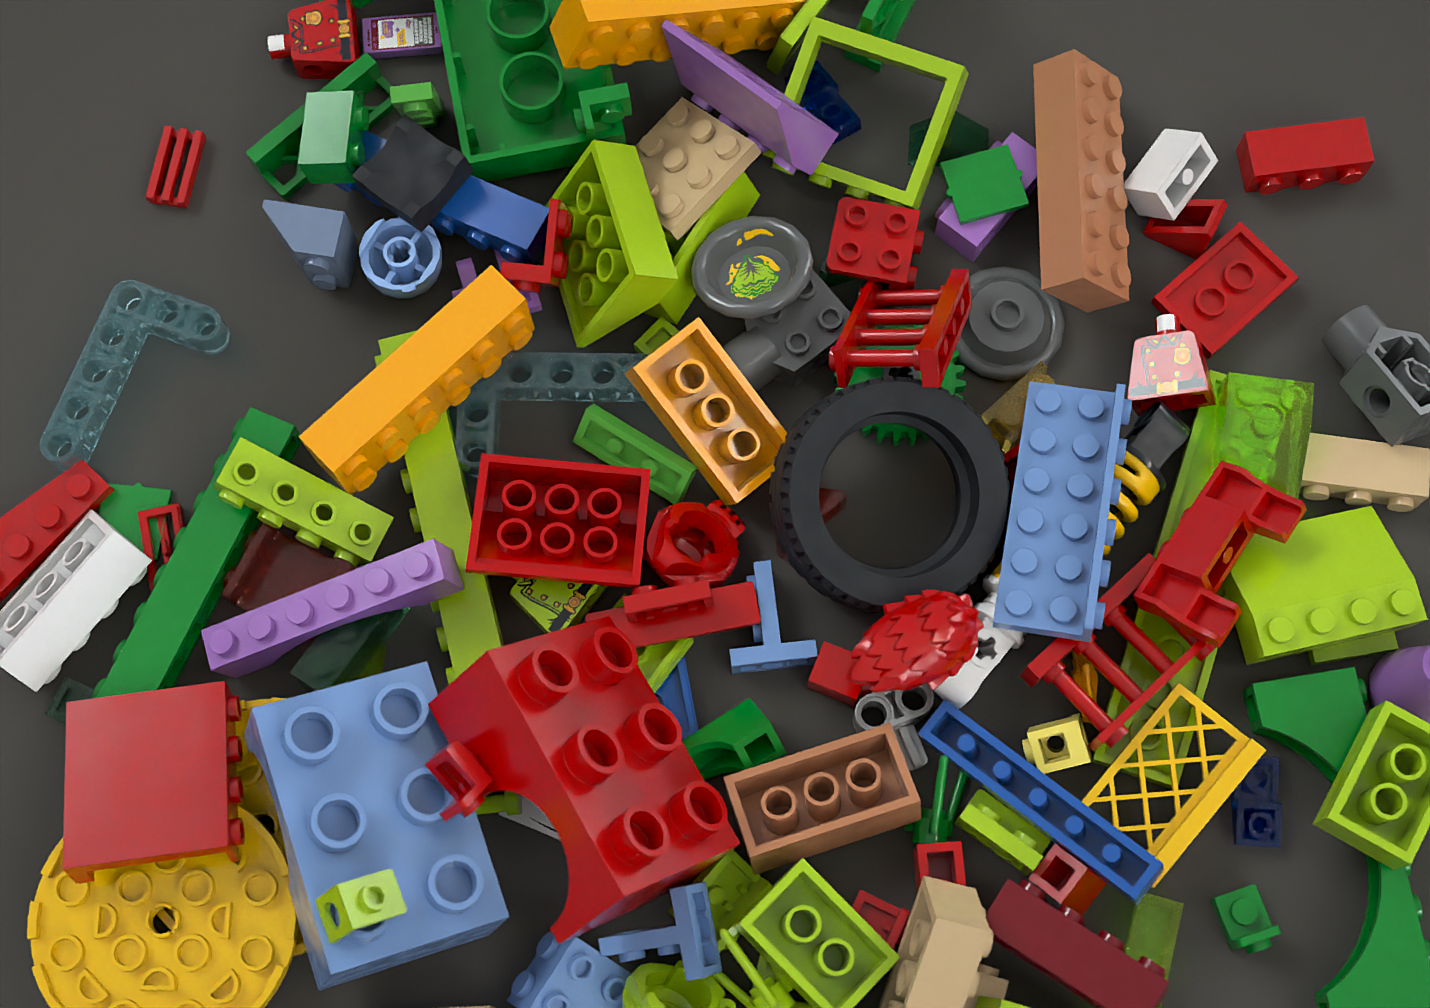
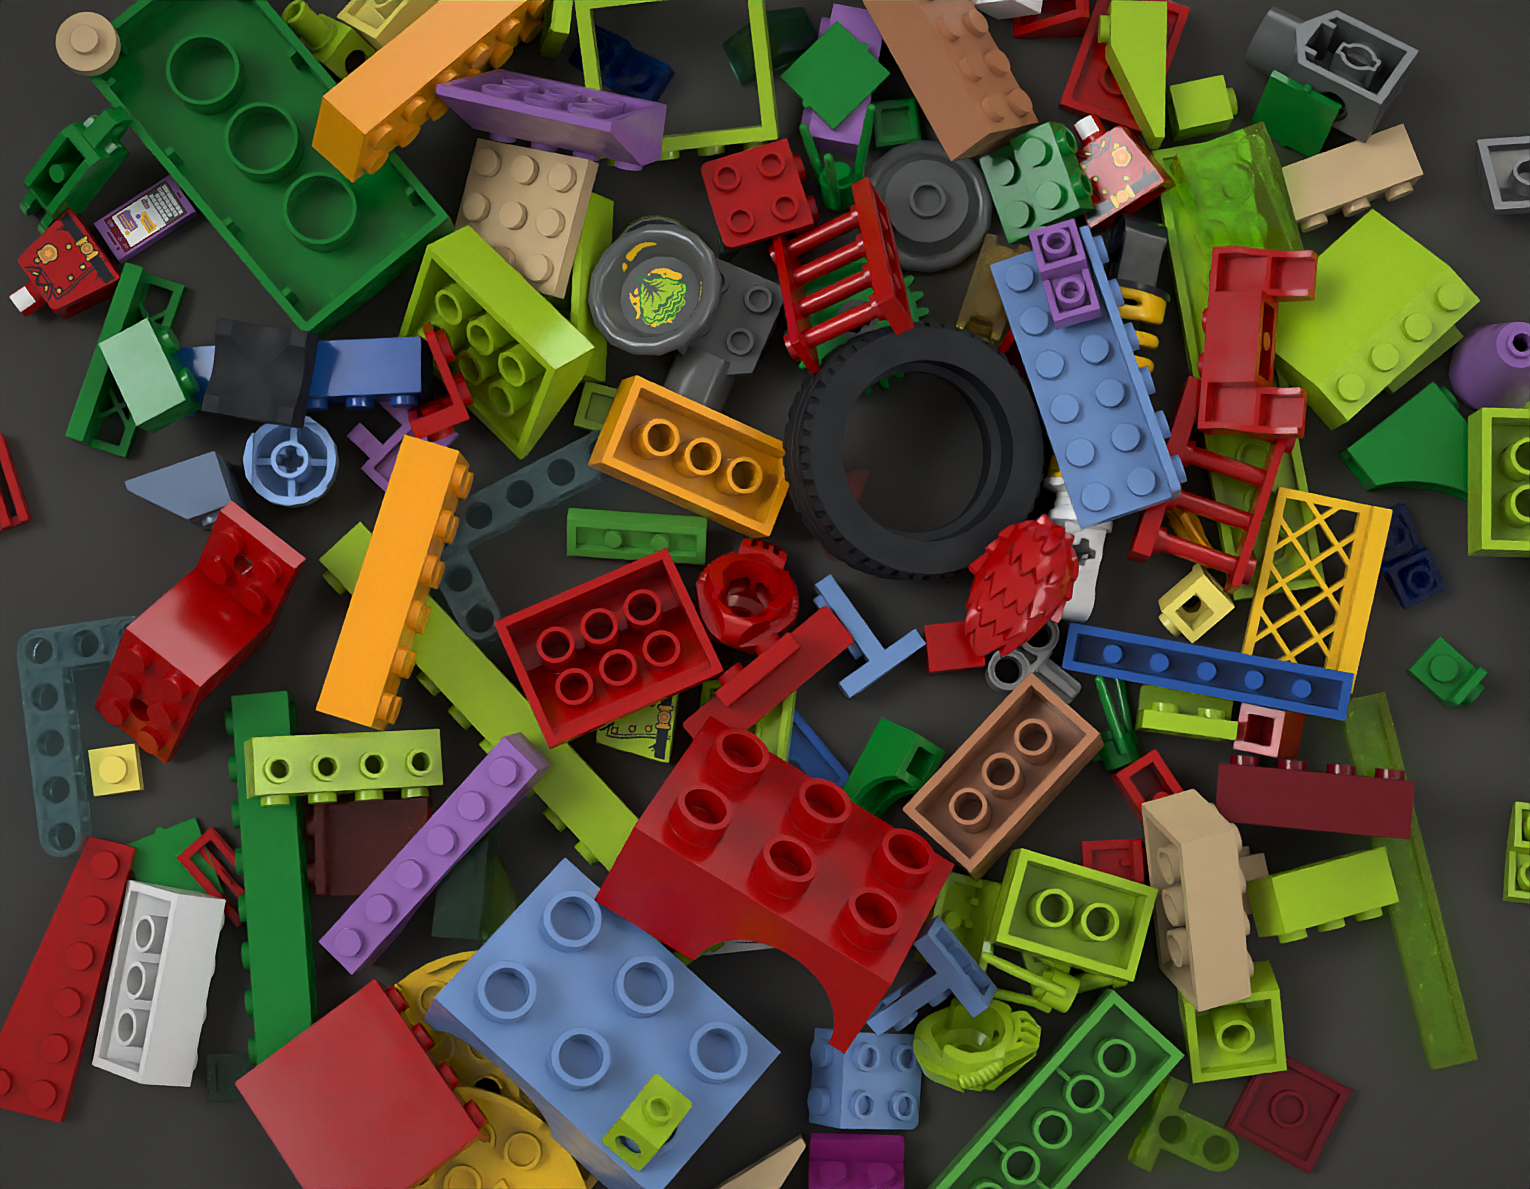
camera: 30 degrees left, 10 degrees up
(134, 422) = (116, 770): none -> light yellow plate
(253, 344) = (198, 632): none -> red bracket
(419, 103) = (219, 295): bright green plate -> none
(461, 776) = (671, 952): red bracket -> none
(602, 104) = (416, 199): green bracket -> none
(942, 261) = (837, 177): none -> green plant
(1014, 248) = (896, 123): none -> green tile
(1086, 414) = (1065, 274): none -> medium lavender slope
(1104, 344) = (1037, 181): none -> green plate
(1234, 289) = (1137, 59): none -> lime slope
(1267, 354) = (1200, 107): none -> lime brick
(1345, 397) = (1296, 114): none -> green piece

